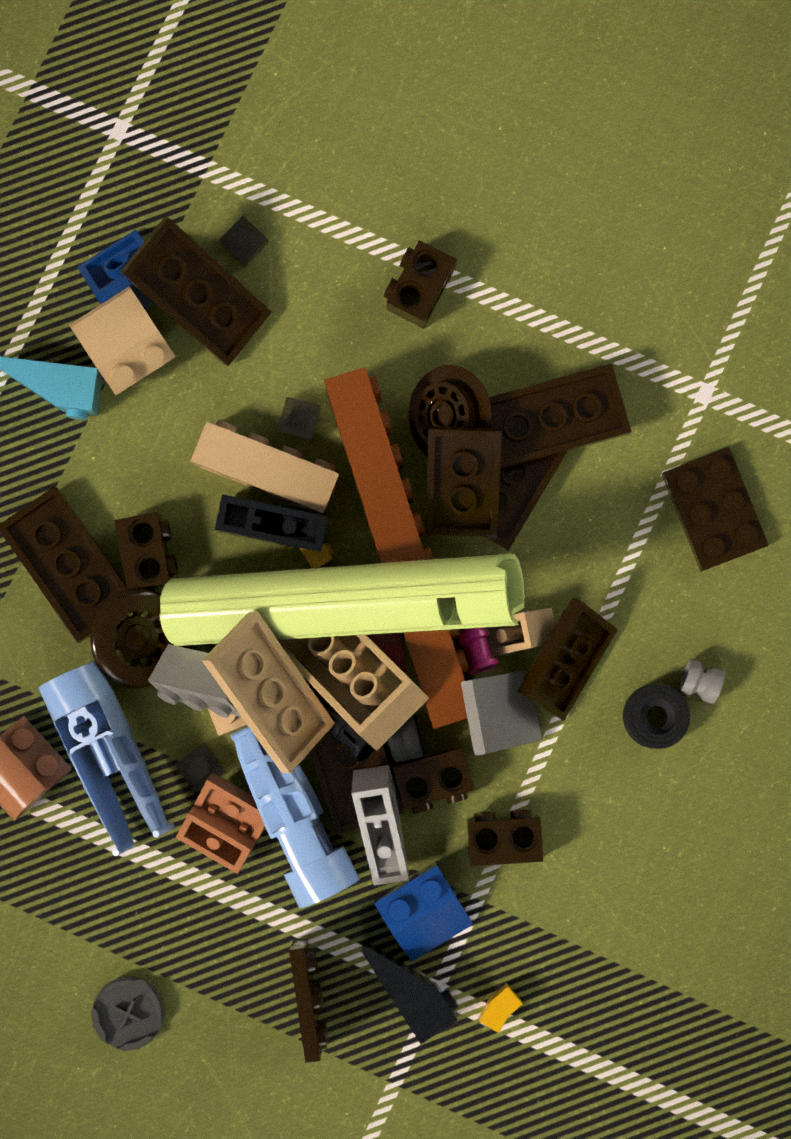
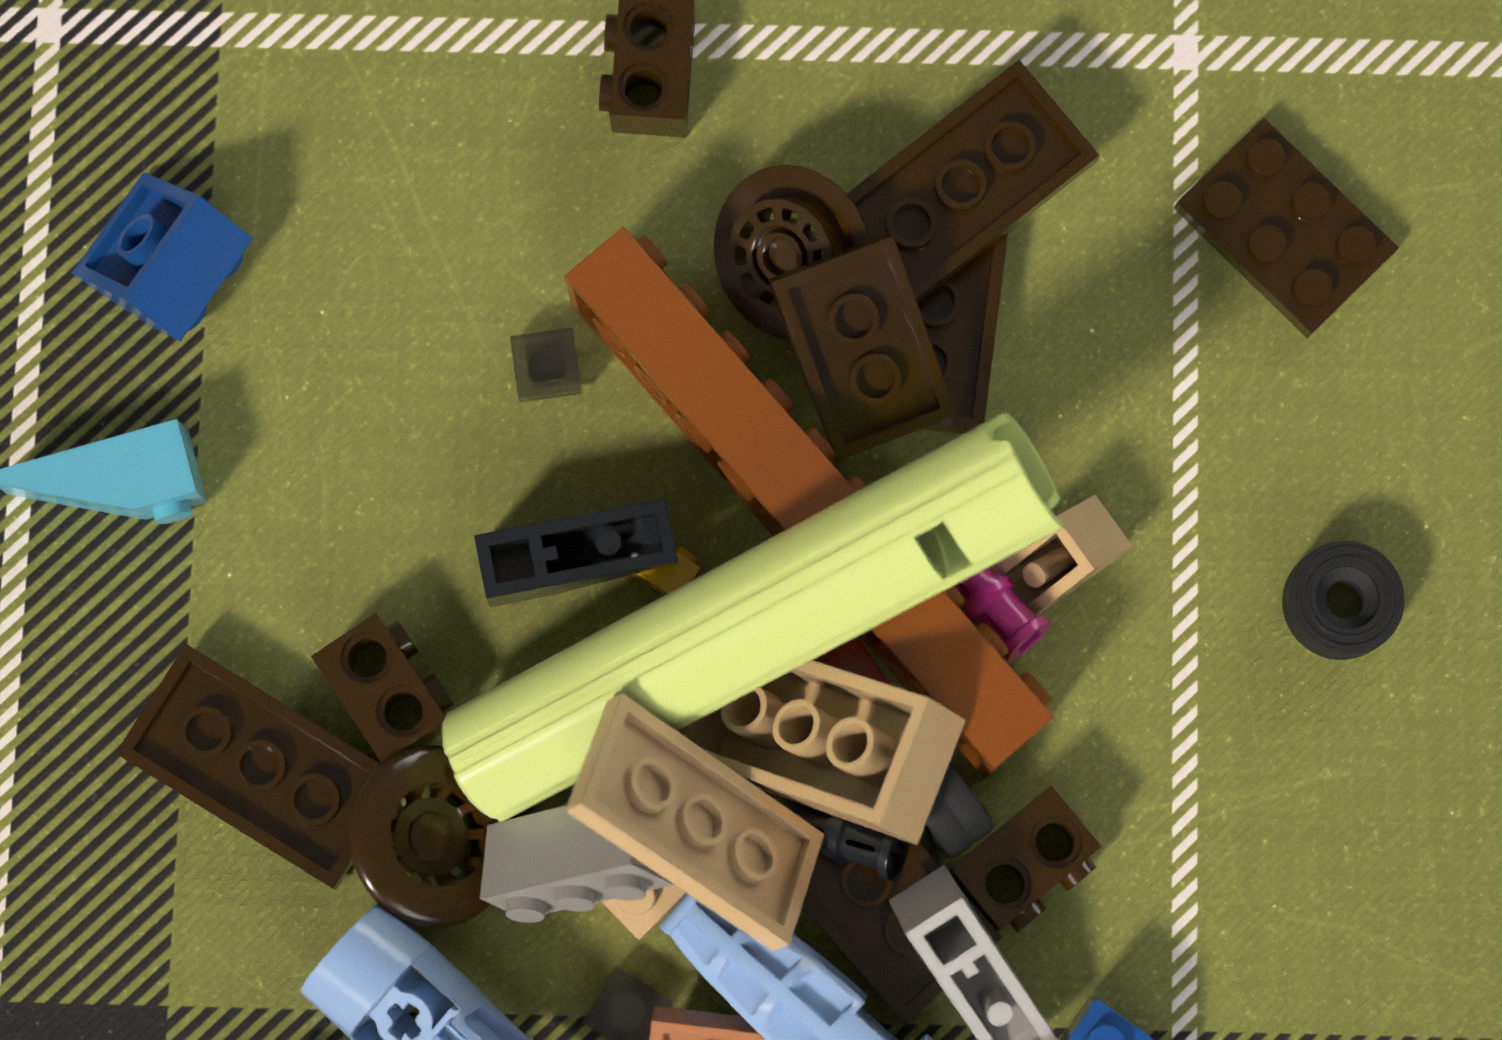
camera: 25 degrees left, 5 degrees down
(122, 340) = (200, 356): tan slope -> none
(195, 291) = (288, 225): dark brown plate -> none
(243, 241) = (330, 118): clear smoke plate -> none
(266, 468) = (524, 467): tan brick -> none
(499, 713) = (1090, 696): light grey tile -> none
(504, 849) = (1192, 923): dark brown brick -> none
(568, 659) = (1159, 566): dark brown plate -> none
(704, 682) = (1399, 511): light grey wheel -> none

